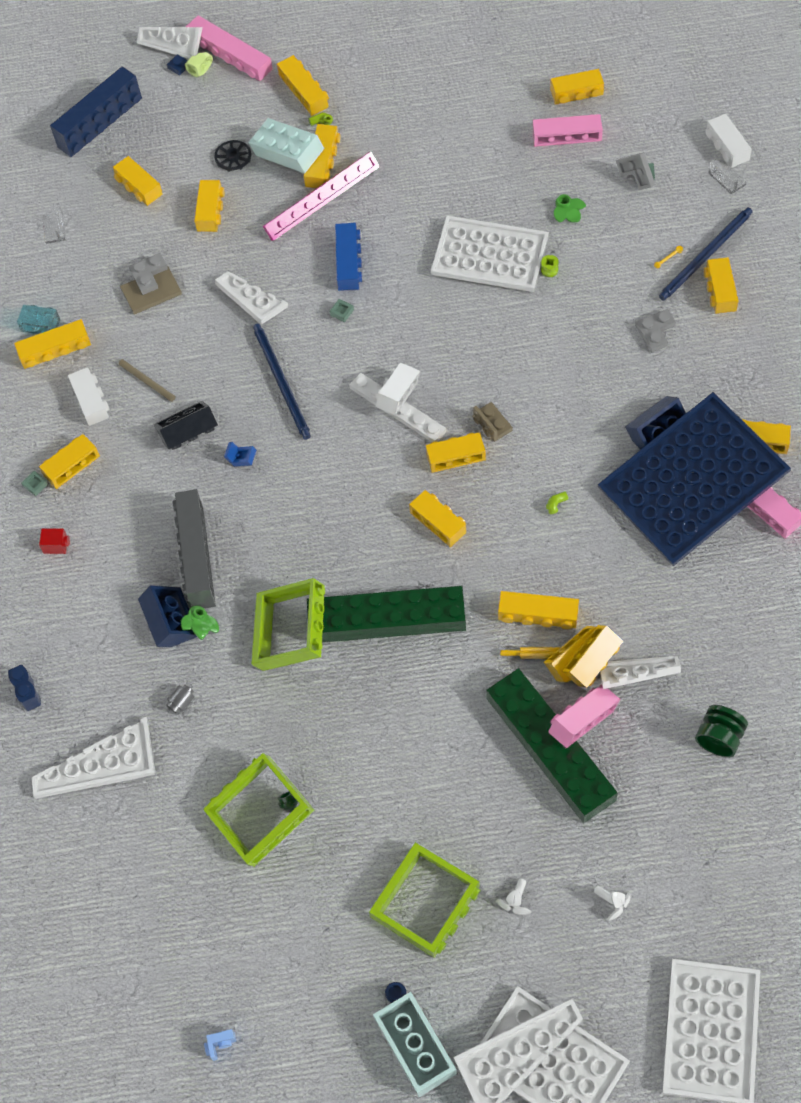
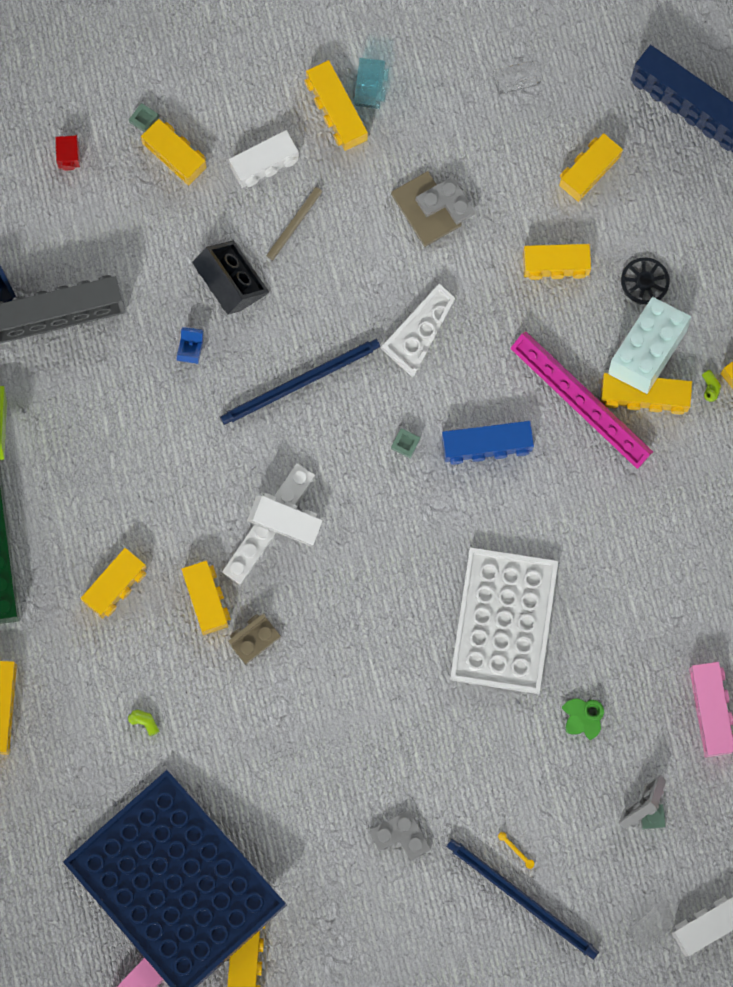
camera: 75 degrees right, 15 degrees up
(546, 268) = (486, 700): lime wheel -> none
(655, 421) = (256, 838): dark blue slope -> none
(721, 285) = (469, 917): yellow brick -> none

